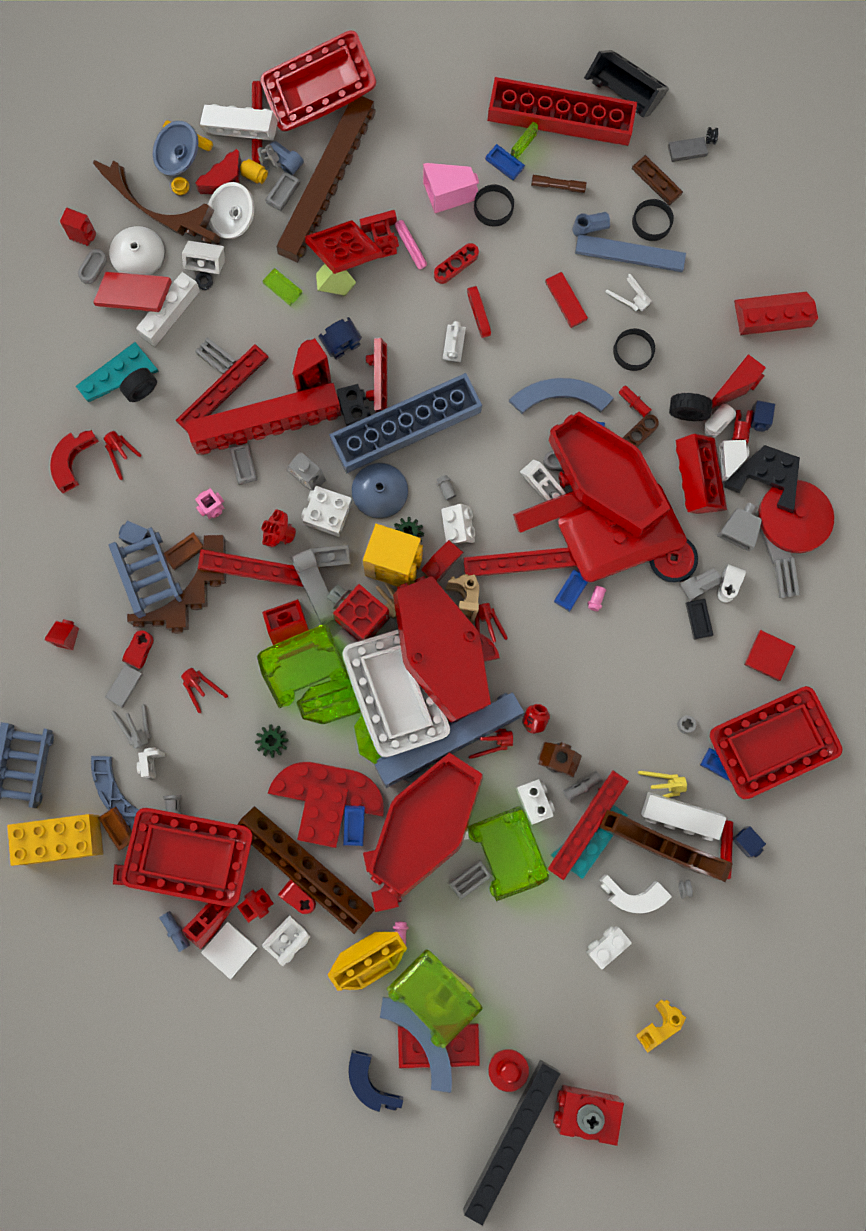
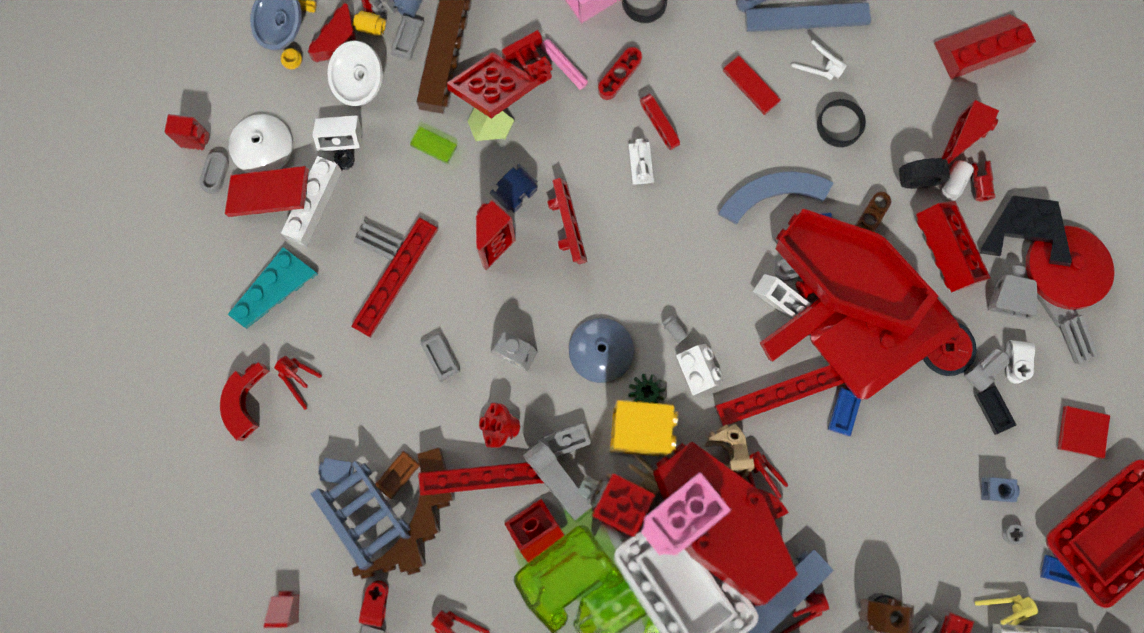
camera: 10 degrees left, 0 degrees up
(138, 384) = (299, 297): black tyre -> none
(191, 222) = (314, 97): reddish brown slope -> none
(205, 499) = (406, 414): bright pink brick -> none
(263, 419) = (451, 302): red brick -> none
(326, 511) = (548, 390): white brick -> none
(349, 407) = (543, 264): black brick -> none
(405, 423) = (612, 267): sand blue brick -> none
(406, 630) = (684, 517): none -> bright pink slope
(442, 561) = (694, 416): red slope -> none
(536, 718) = (847, 572): red head -> none
(596, 599) = (876, 415): bright pink pin -> none
(634, 401) = (857, 181): red axle -> none
(675, 684) = (990, 489): none -> sand blue brick
(732, 456) = (982, 219): white slope -> none
(762, 415) = (1003, 163): dark blue brick -> none

